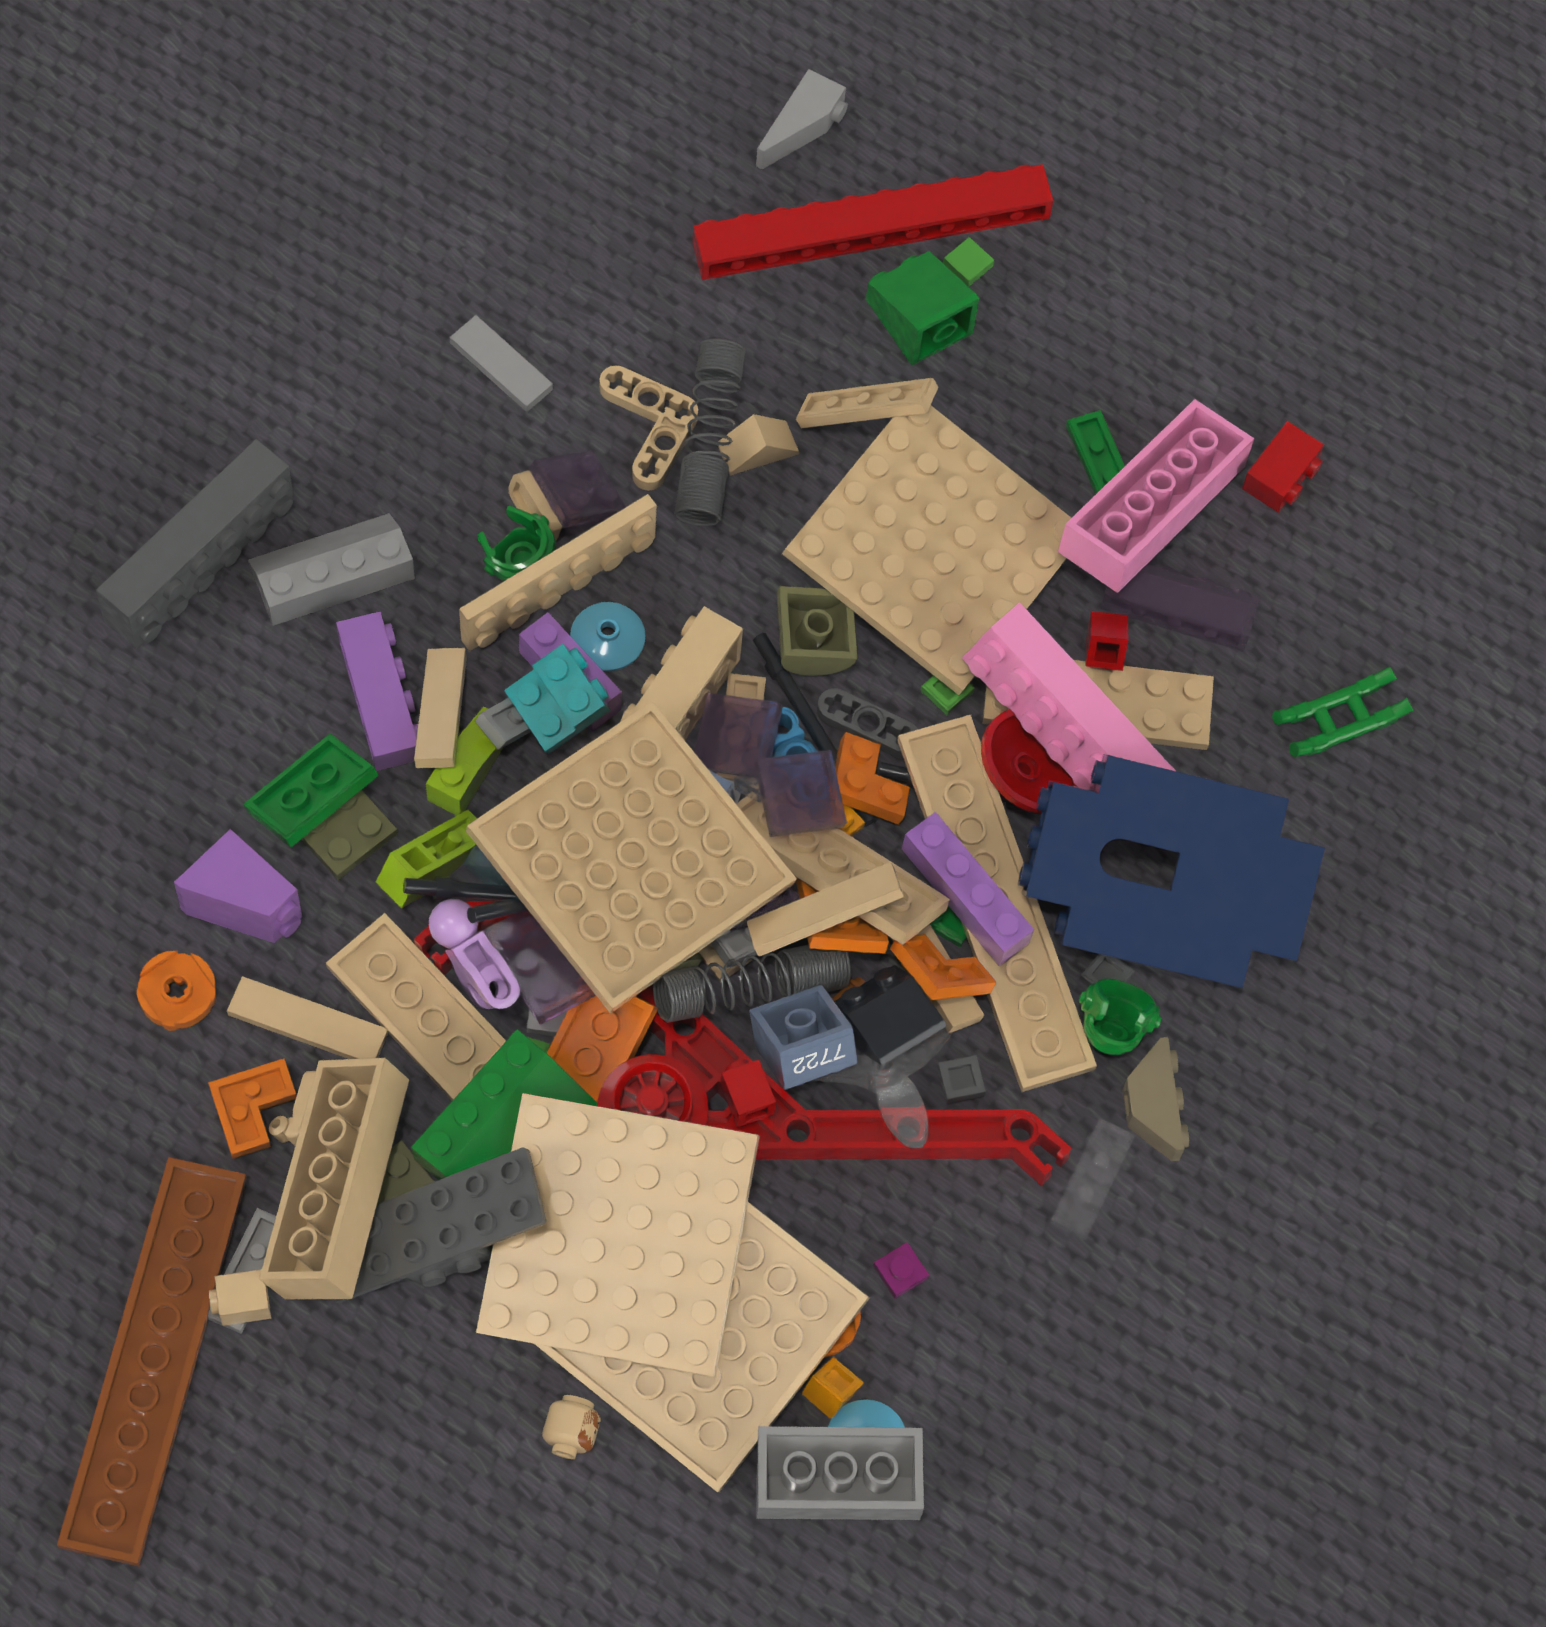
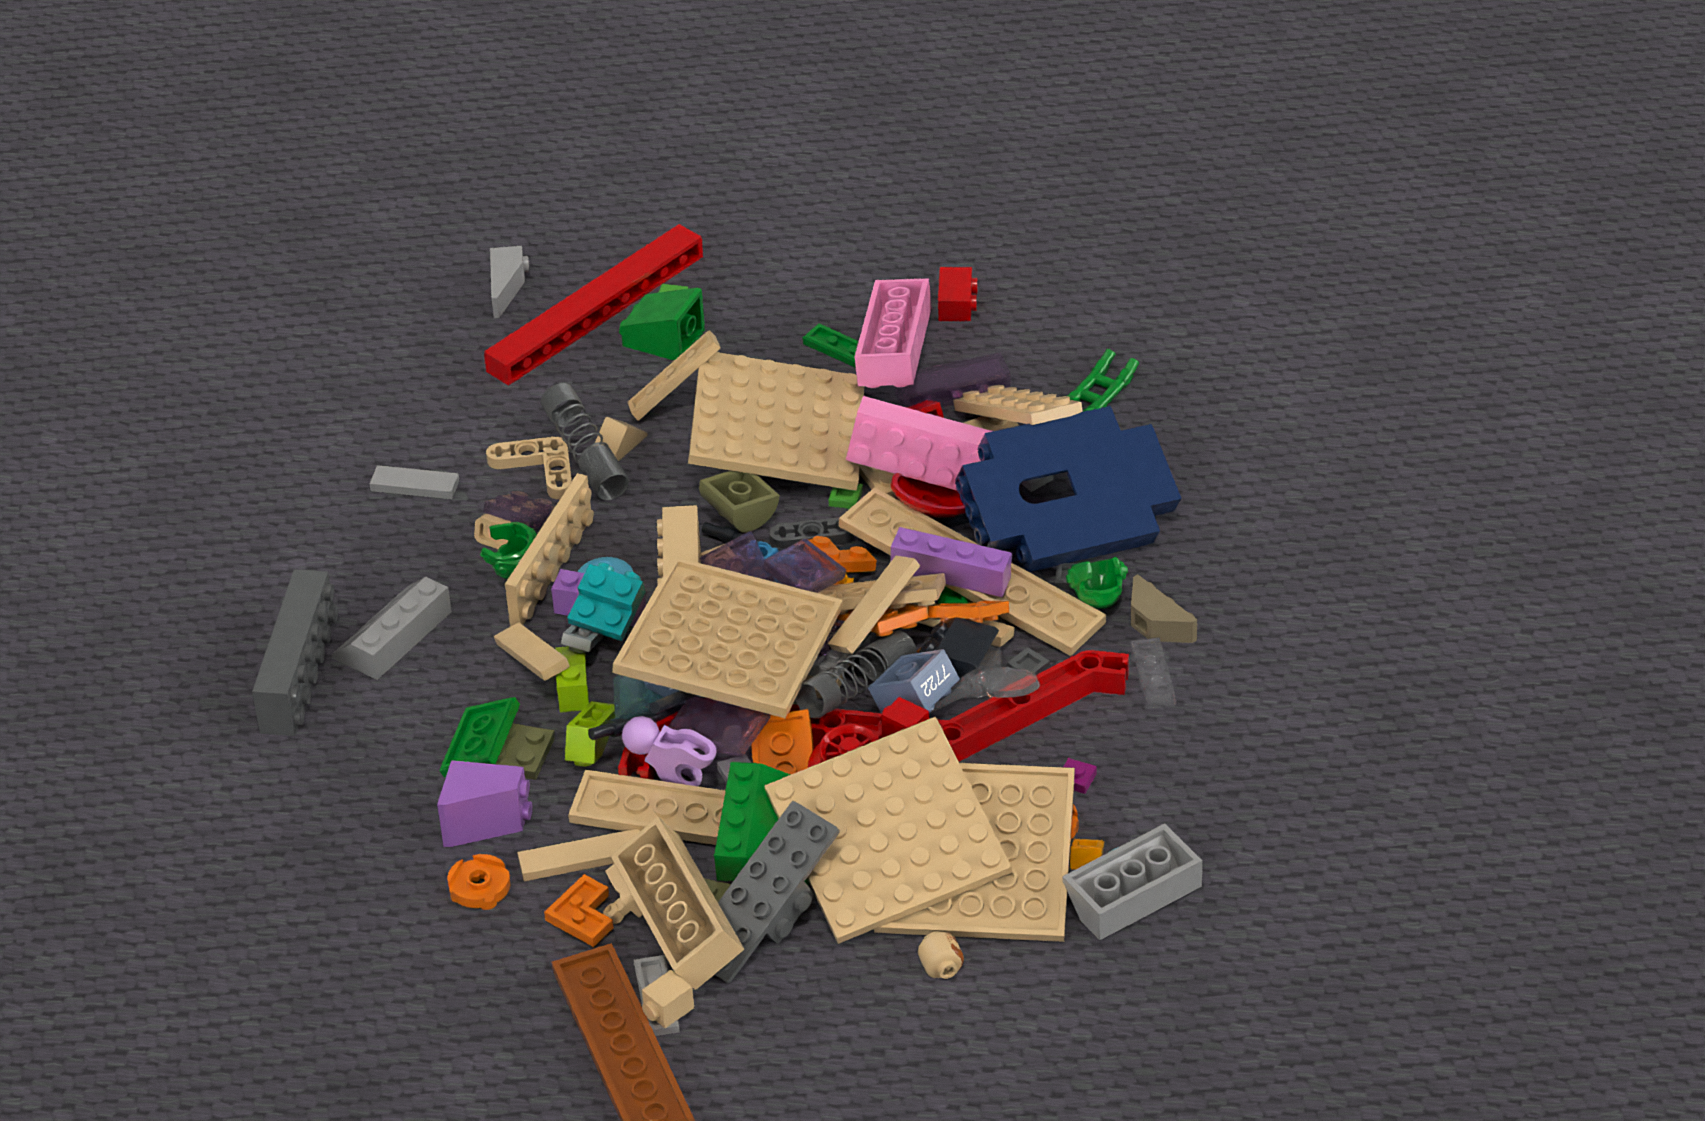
camera: 25 degrees left, 25 degrees down
(378, 689) = (478, 667): medium lavender brick -> none
(1204, 710) = (1017, 405): none -> tan plate

